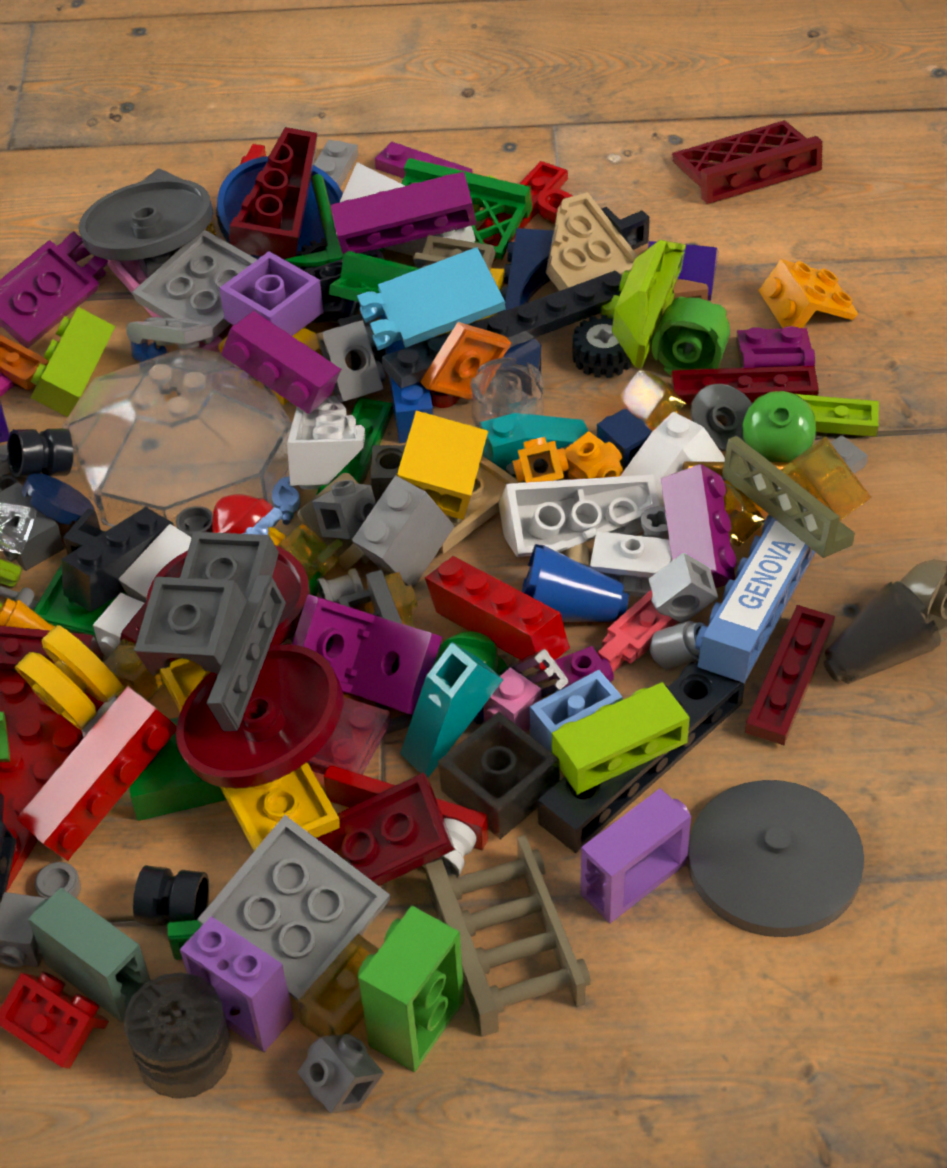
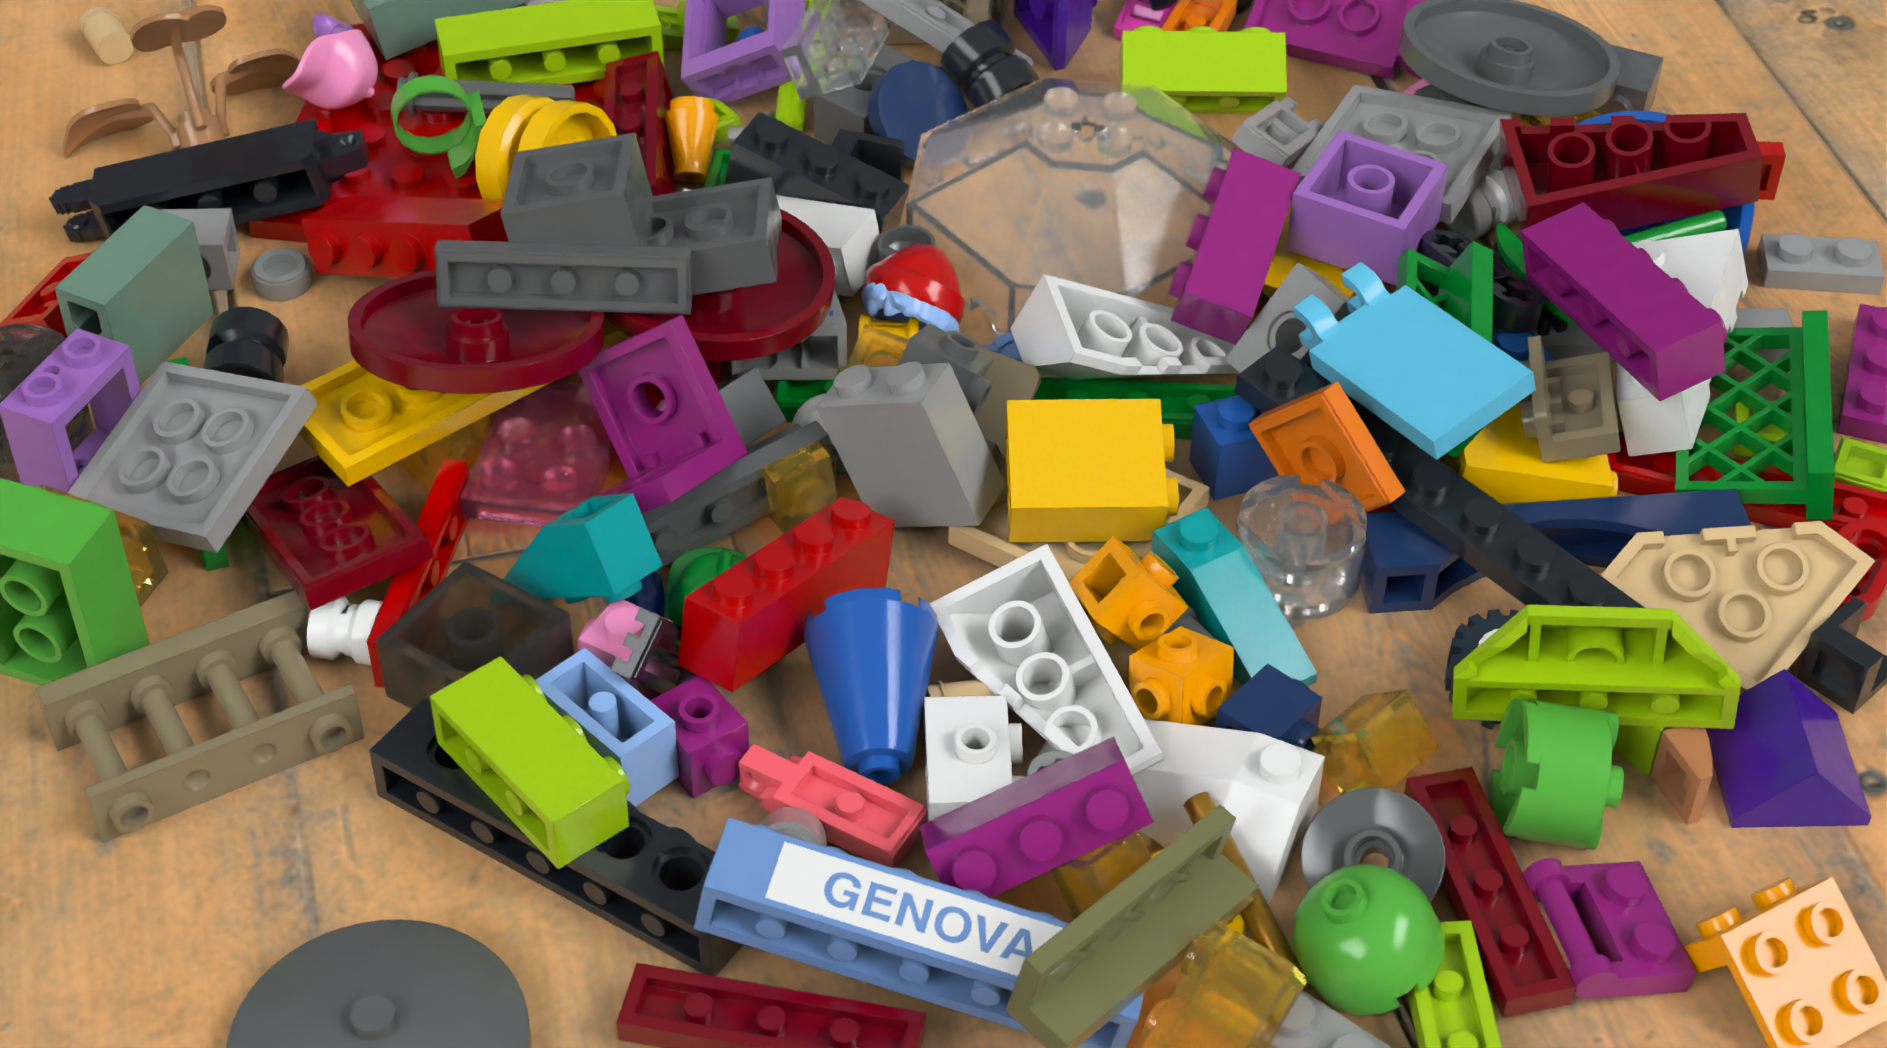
camera: 75 degrees right, 5 degrees down
(635, 855) = (323, 827): medium lavender window -> none
(682, 588) = (878, 810): light grey brick -> none

